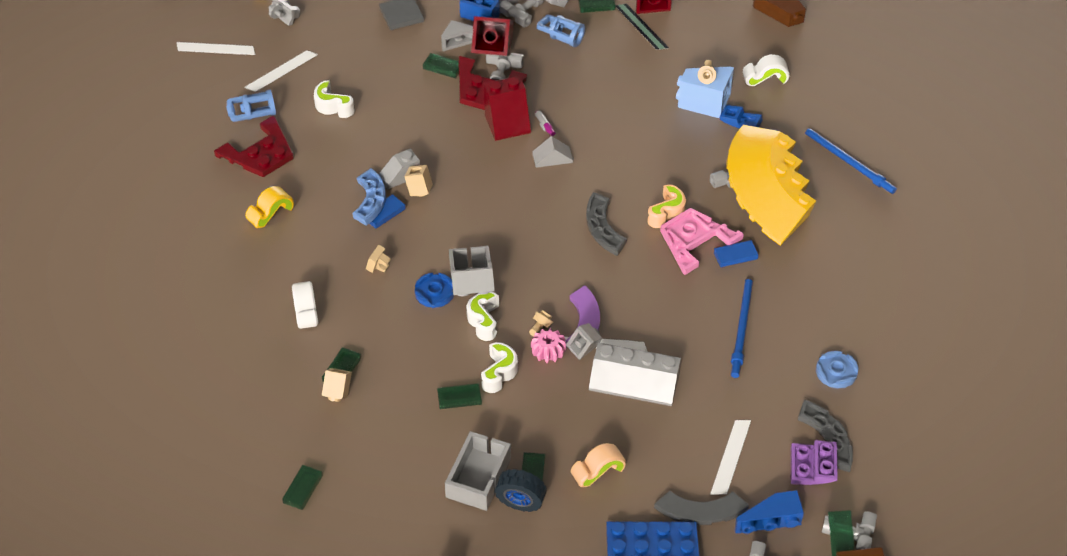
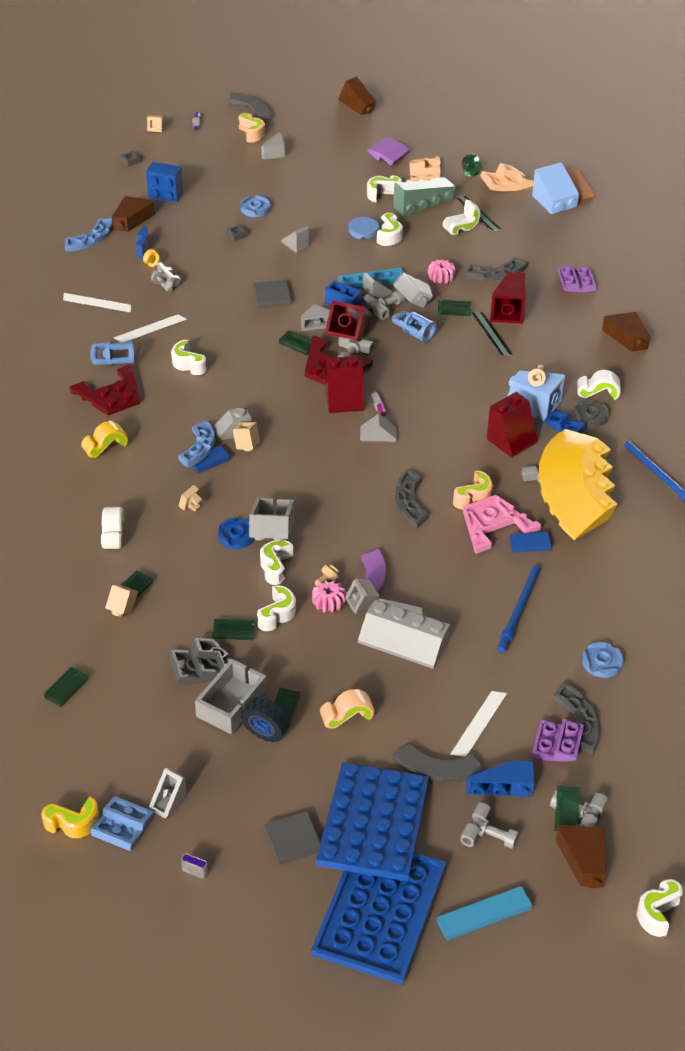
camera: 10 degrees right, 5 degrees down
(434, 438) = (198, 663): none -> dark grey slope
(690, 129) = (511, 425): none -> dark red slope
(764, 102) = (591, 413): none -> dark grey tile

